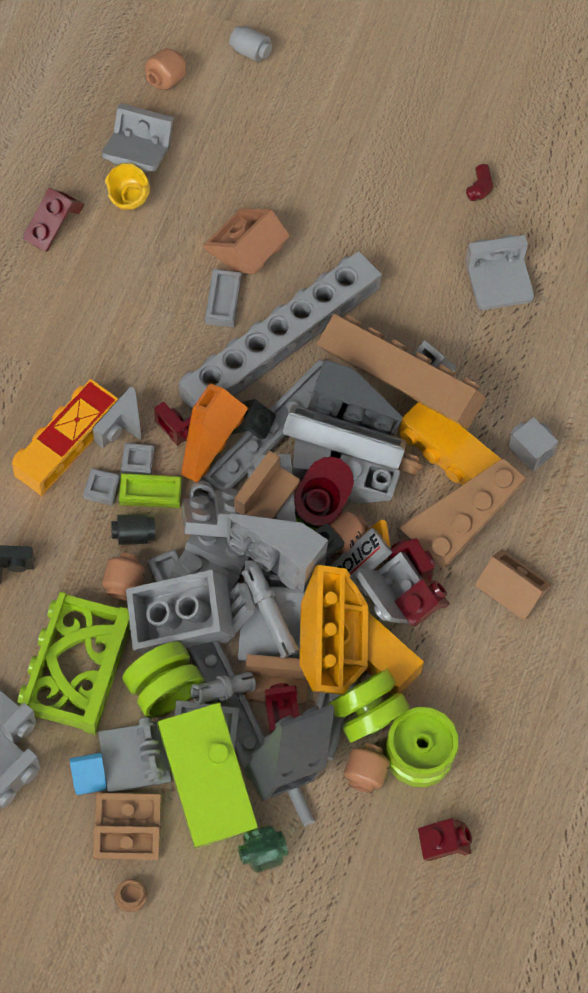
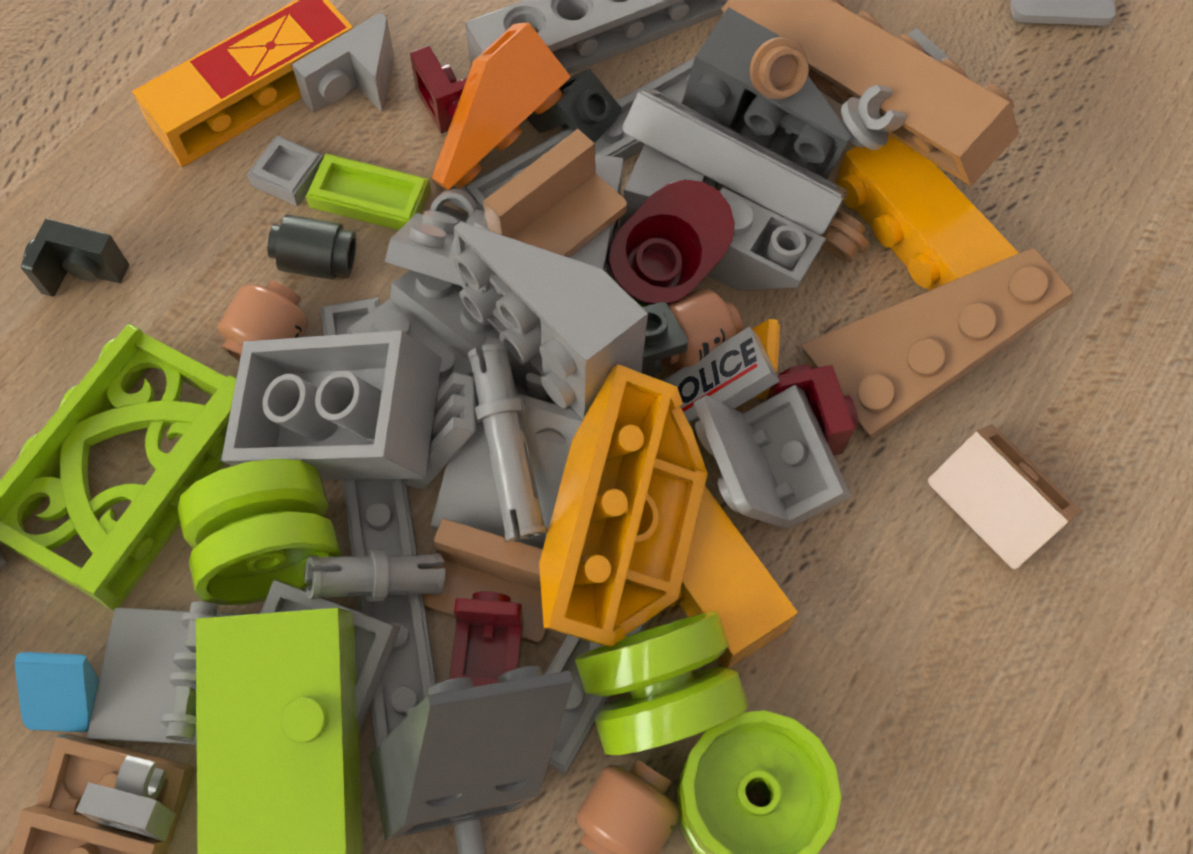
camera: 15 degrees right, 0 degrees up
(137, 459) = (364, 137): light grey tile -> none
(145, 812) = (132, 802): none -> light grey tile
(359, 392) = (779, 68): none -> medium nougat plate
(407, 406) = (864, 119): none -> light grey plate
(422, 601) = (818, 488): dark red bracket -> none
(533, 443) = (1084, 245): light grey brick -> none

